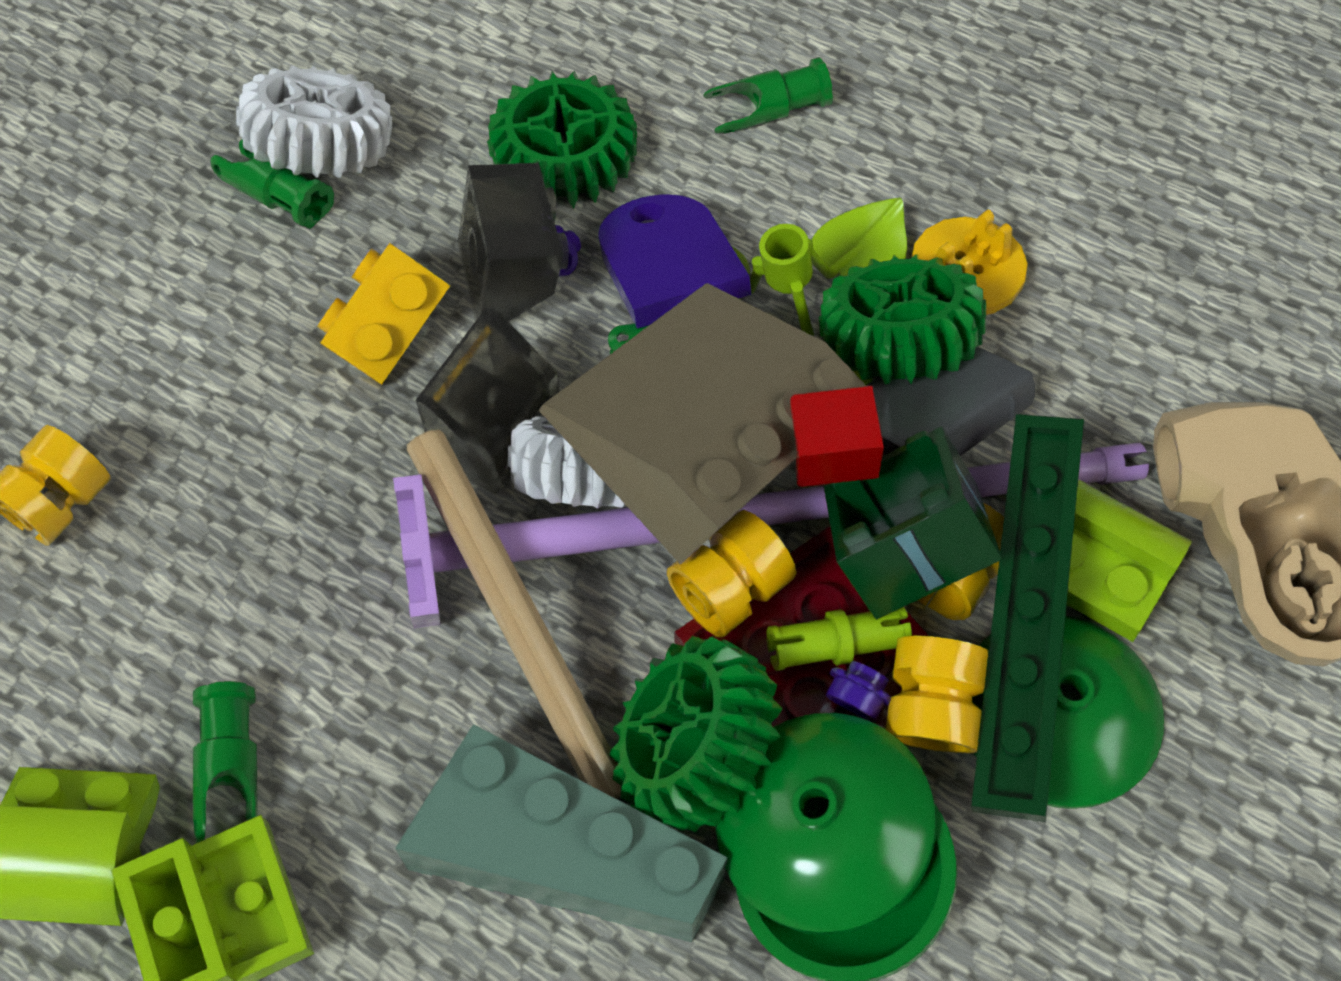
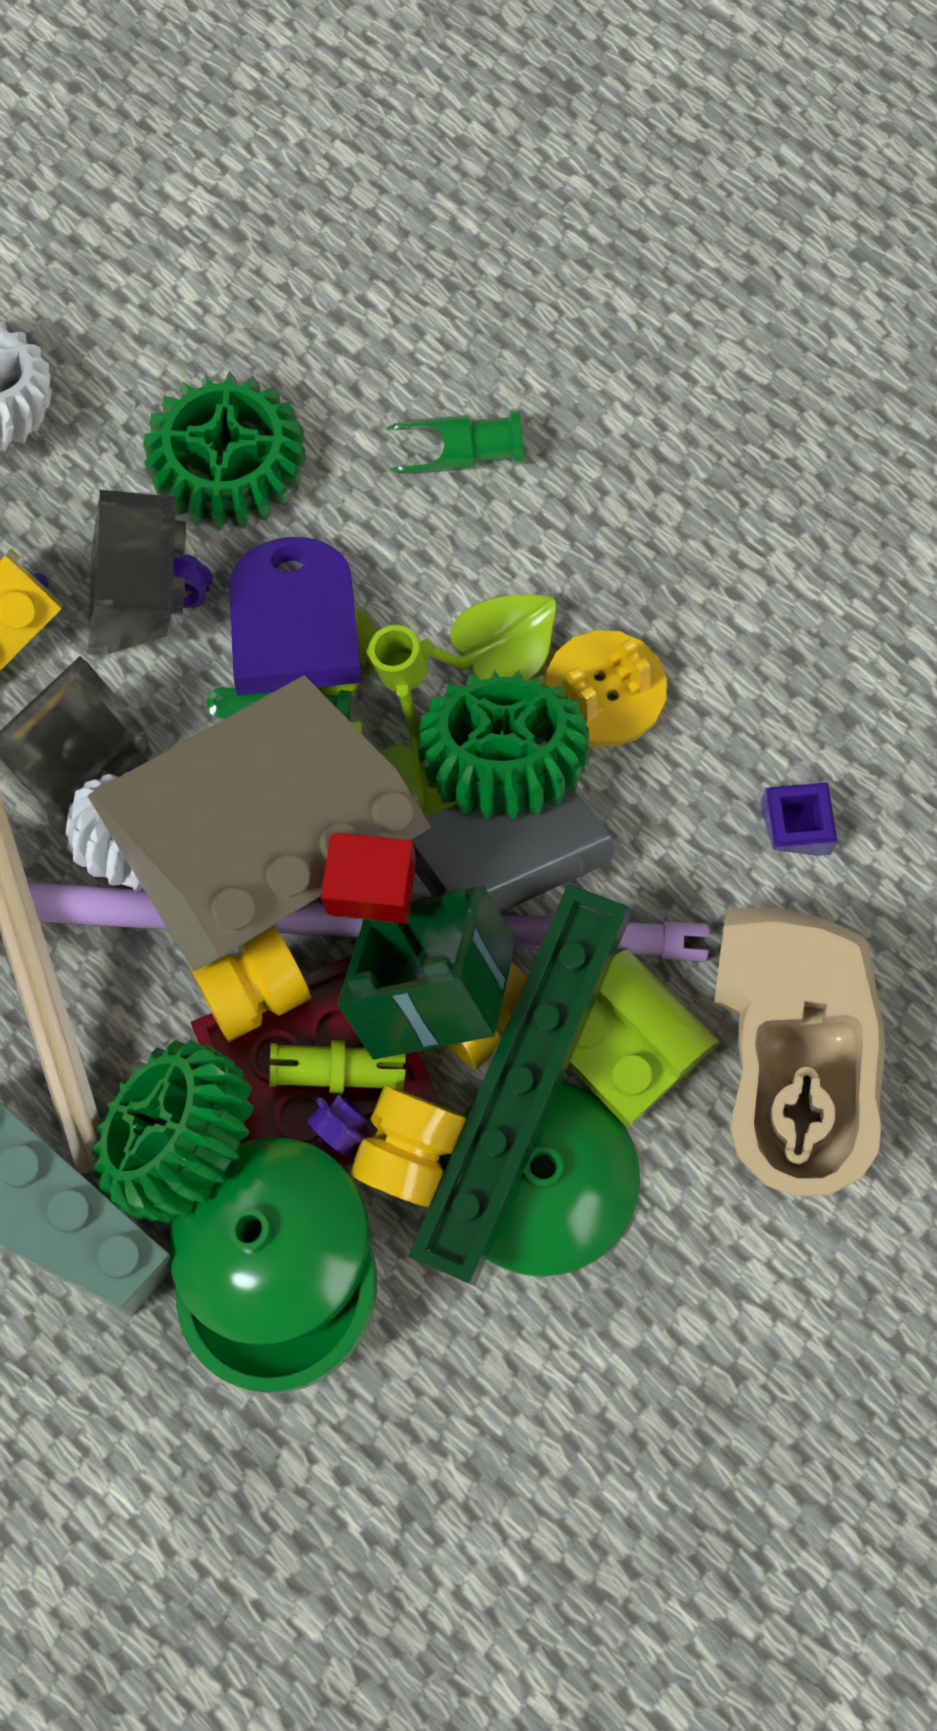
camera: 10 degrees right, 10 degrees up
(1187, 335) = (800, 818): none -> dark purple slope

